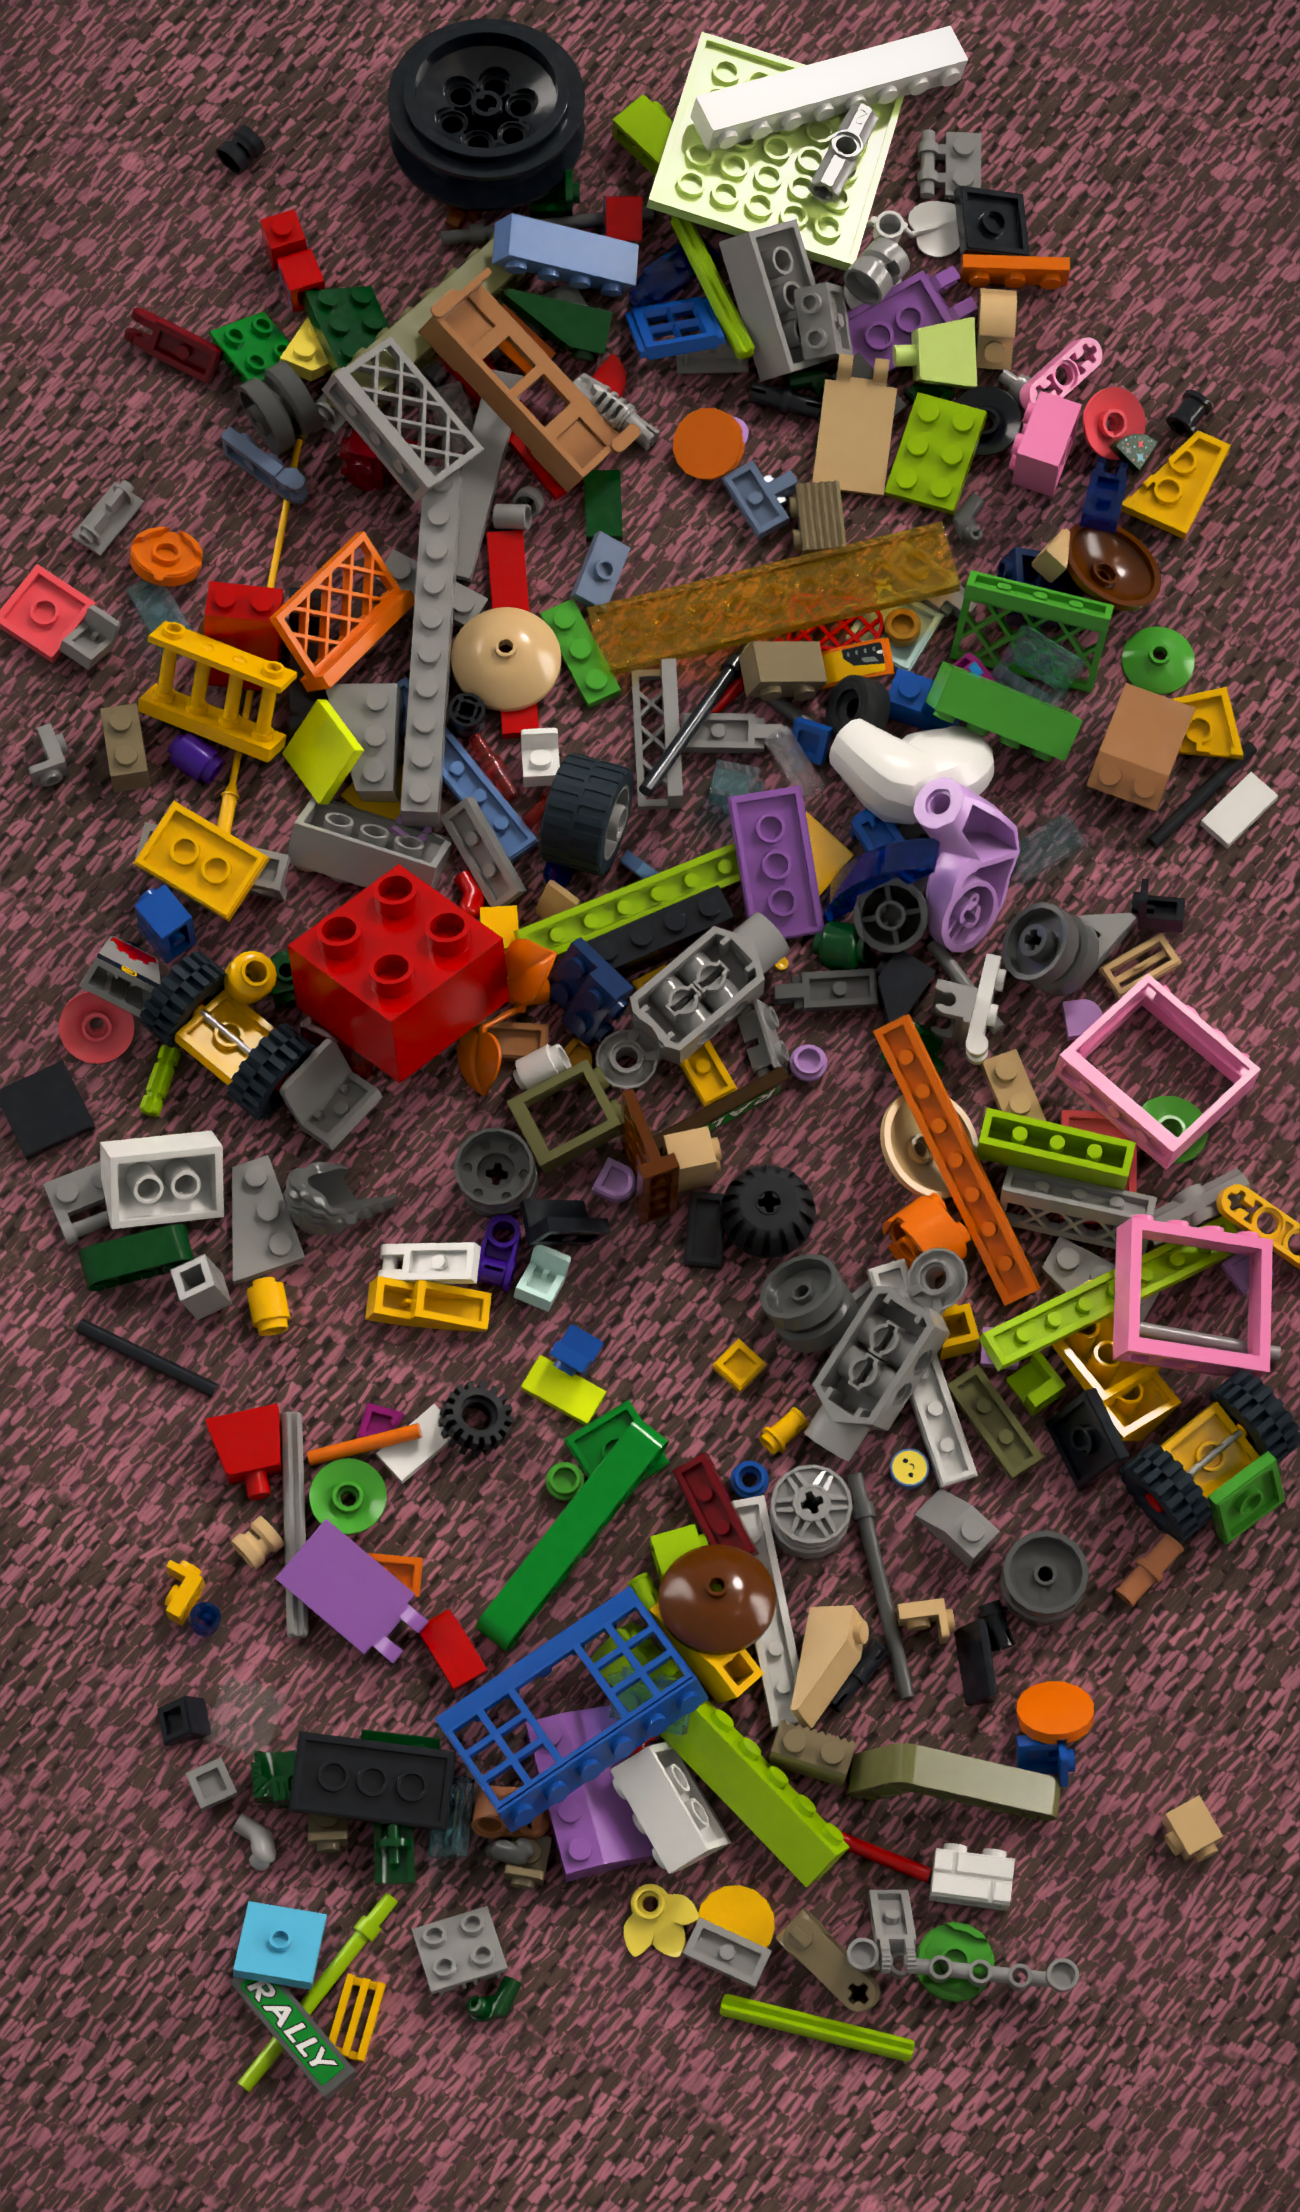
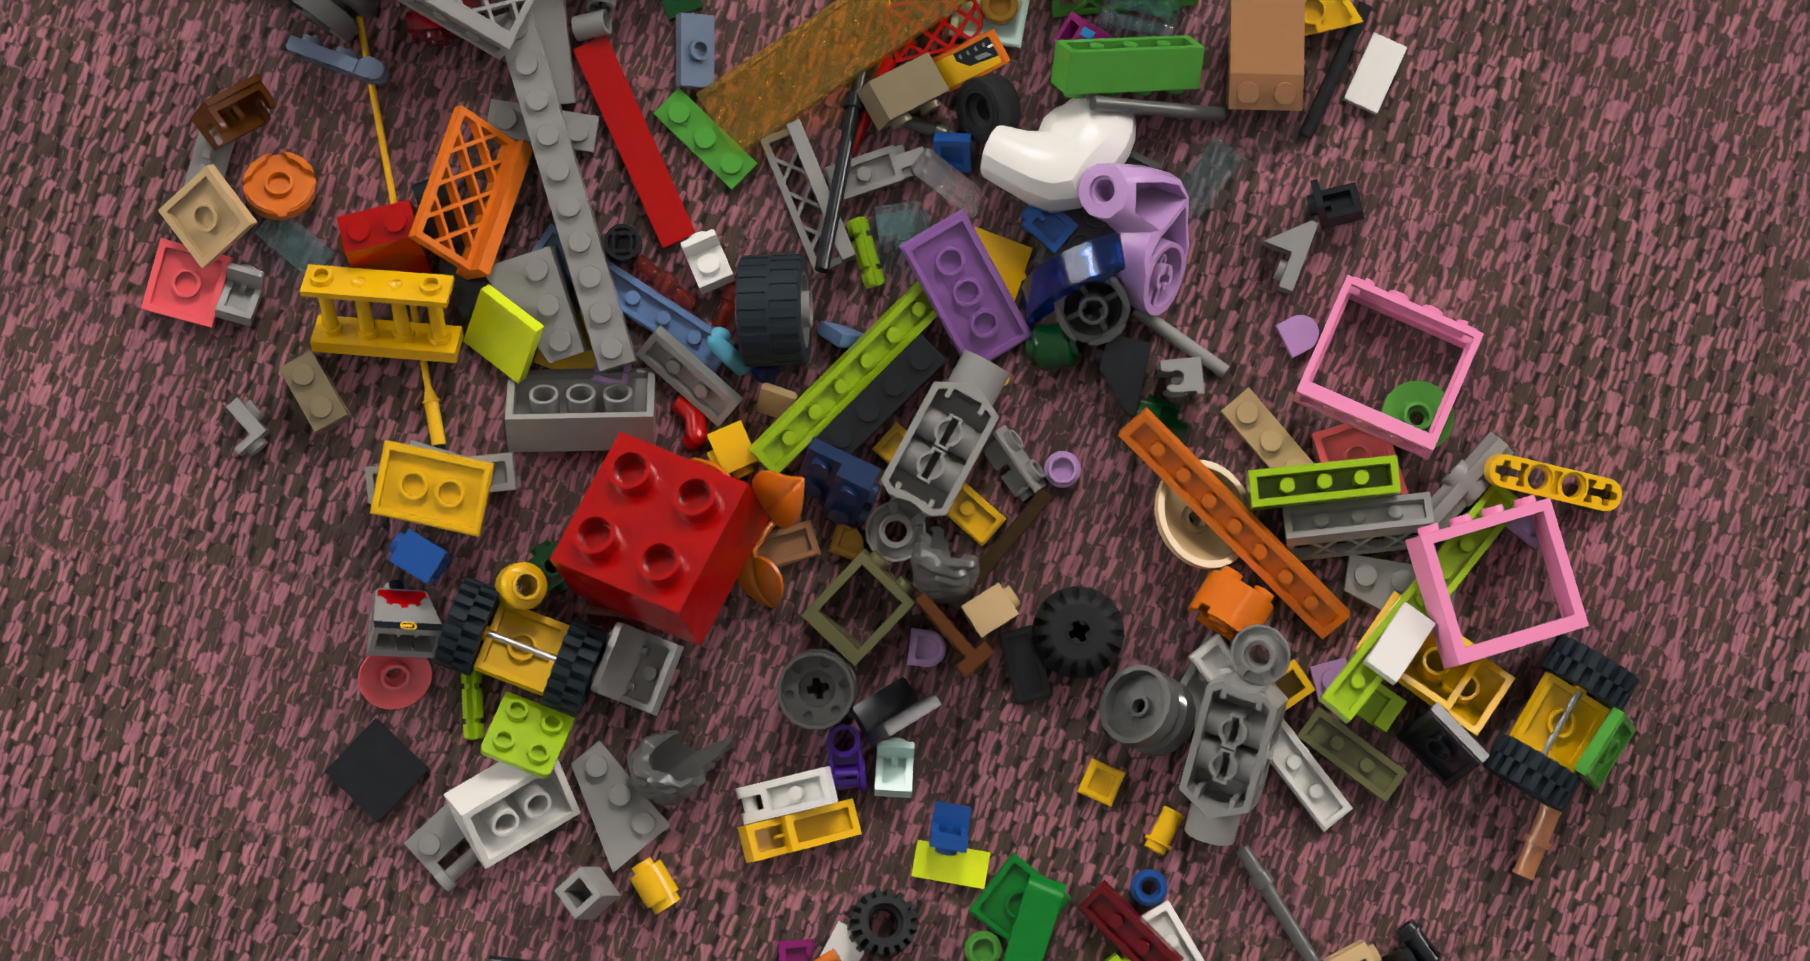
camera: 20 degrees left, 15 degrees up
(88, 554) = (207, 216): none -> tan tile
(135, 1256) = (516, 882): dark green beam -> none
(150, 474) = (234, 112): none -> reddish brown hinge
(195, 758) = (384, 377): dark purple brick -> none
(203, 1116) = (527, 735): none -> lime bracket
(512, 678) = (644, 198): tan dish -> none
(523, 834) = (726, 352): none -> medium azure arm
(540, 1066) = (820, 567): white brick -> none
(661, 1100) = (938, 573): none -> dark grey hair
(693, 803) = (865, 252): none -> lime axle
(797, 1528) = (1194, 903): light grey wheel -> none
(829, 991) = (1058, 392): dark grey hinge -> none
(908, 702) = (1033, 75): blue slope -> none
(909, 1469) = (1288, 823): light yellow tile -> none
(958, 1526) = (1351, 864): light grey slope -> none
(984, 1011) = (1207, 331): white plate -> none
(1018, 763) = (1157, 108): none -> dark grey bar
(1050, 949) = (1251, 285): dark grey wheel -> none
(1065, 1575) = (1425, 882): dark grey wheel -> none
(1076, 1314) = (1399, 643): none -> white tile
(1114, 982) = (1315, 286): tan tile -> none
(1188, 1337) = (1511, 607): light grey bar -> none

